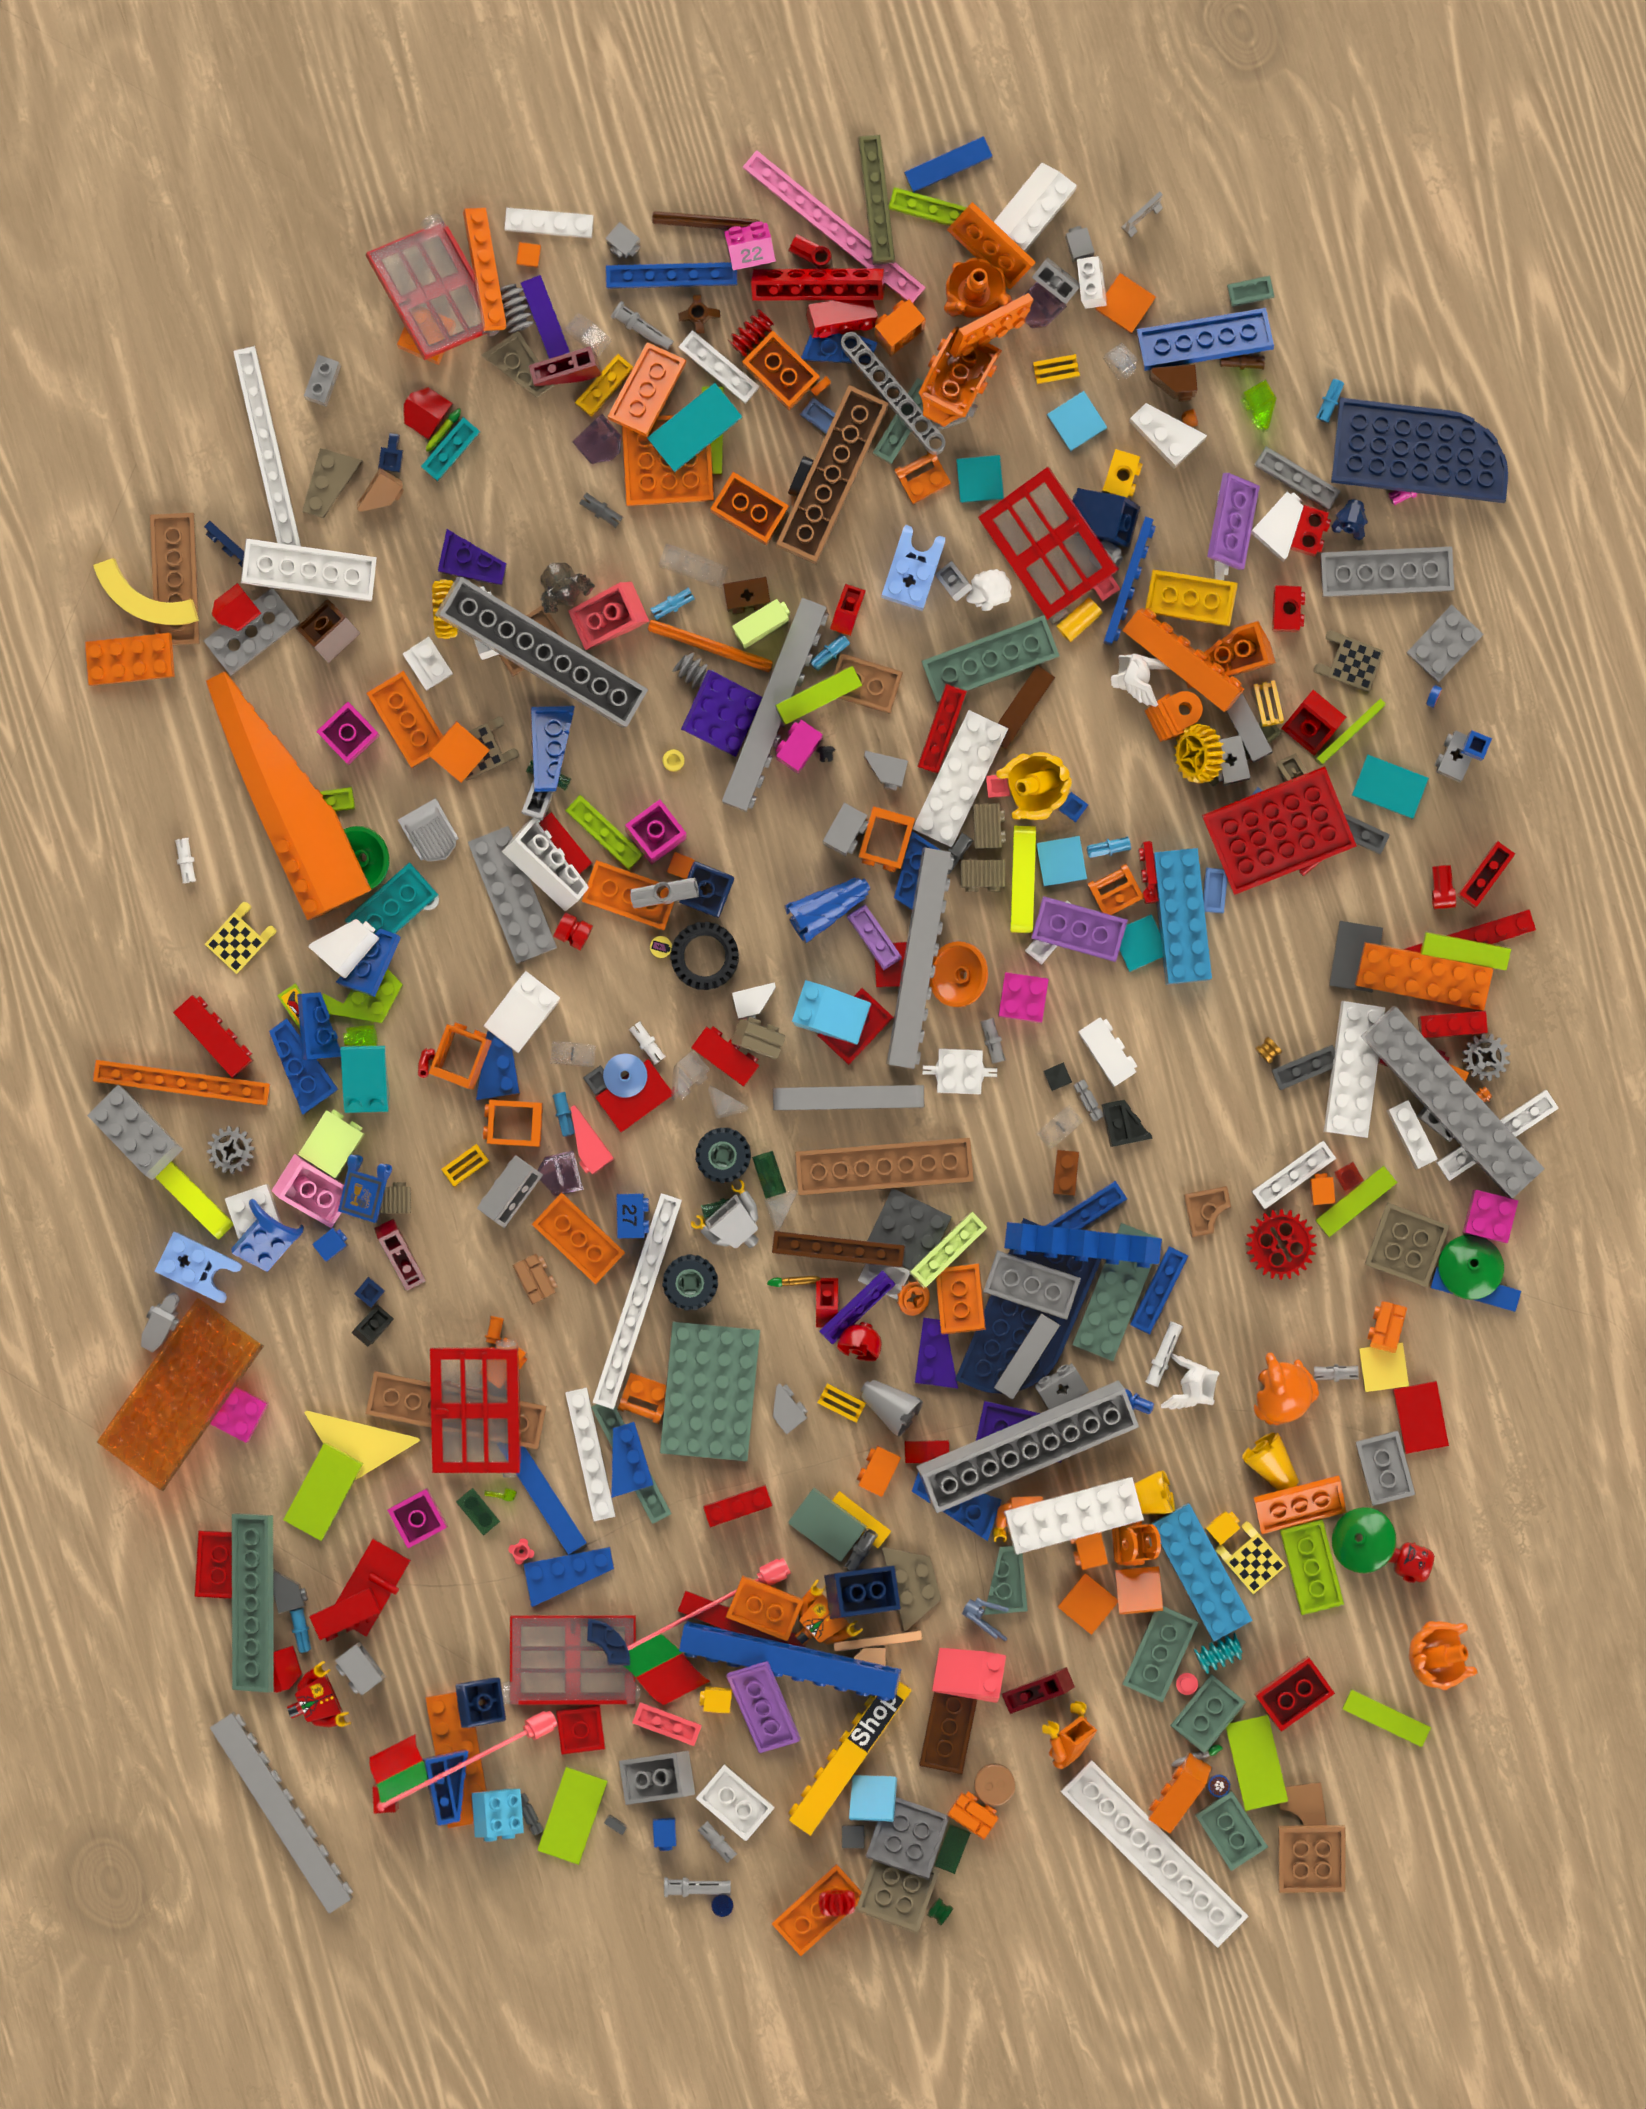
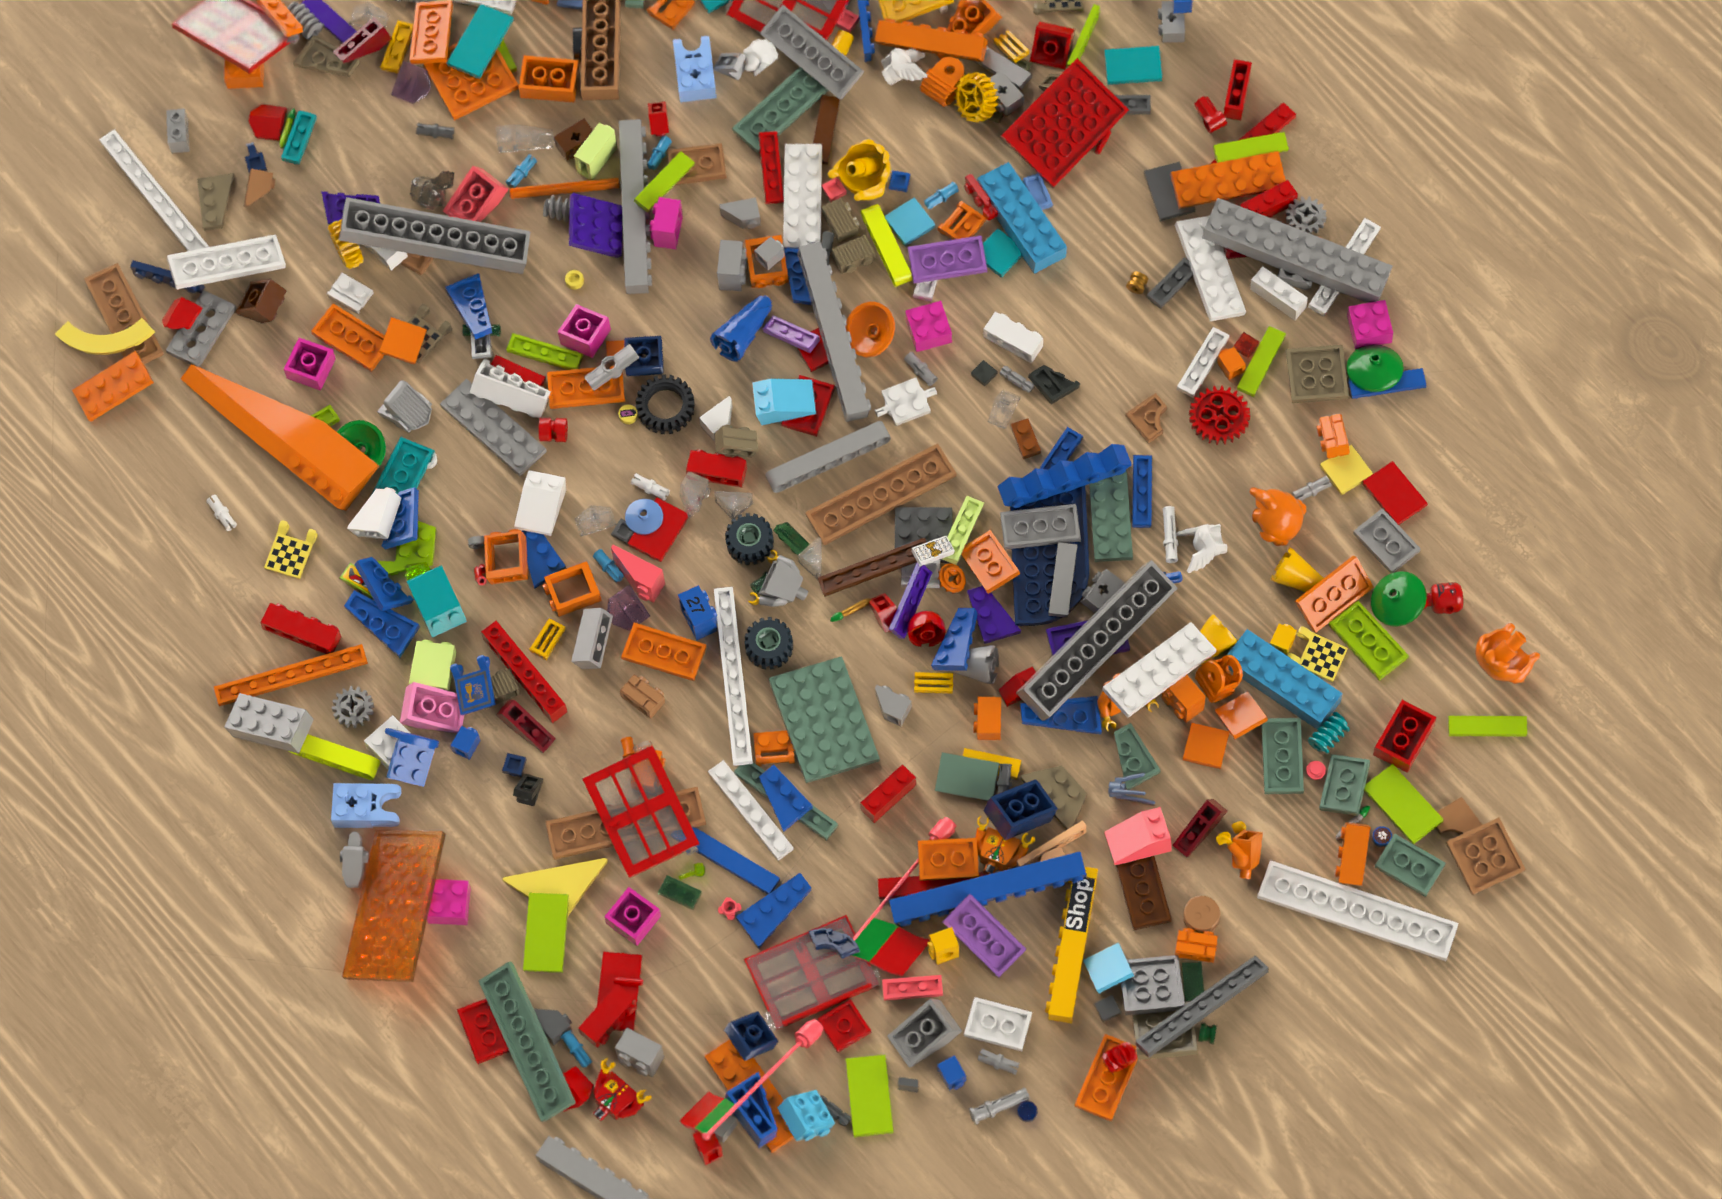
camera: 20 degrees left, 20 degrees down
(423, 1194) = (524, 671): none -> red brick
(437, 1022) = (476, 542): none -> light grey tile
(826, 752) = (690, 223): black piece -> none
(877, 1383) = (955, 646): none -> blue wing
(891, 840) = (769, 253): none -> light grey brick
(904, 1267) = (932, 550): none -> white tile
(946, 1886) = (1202, 1006): none -> dark grey plate
(1046, 615) = (812, 52): none -> light grey plate

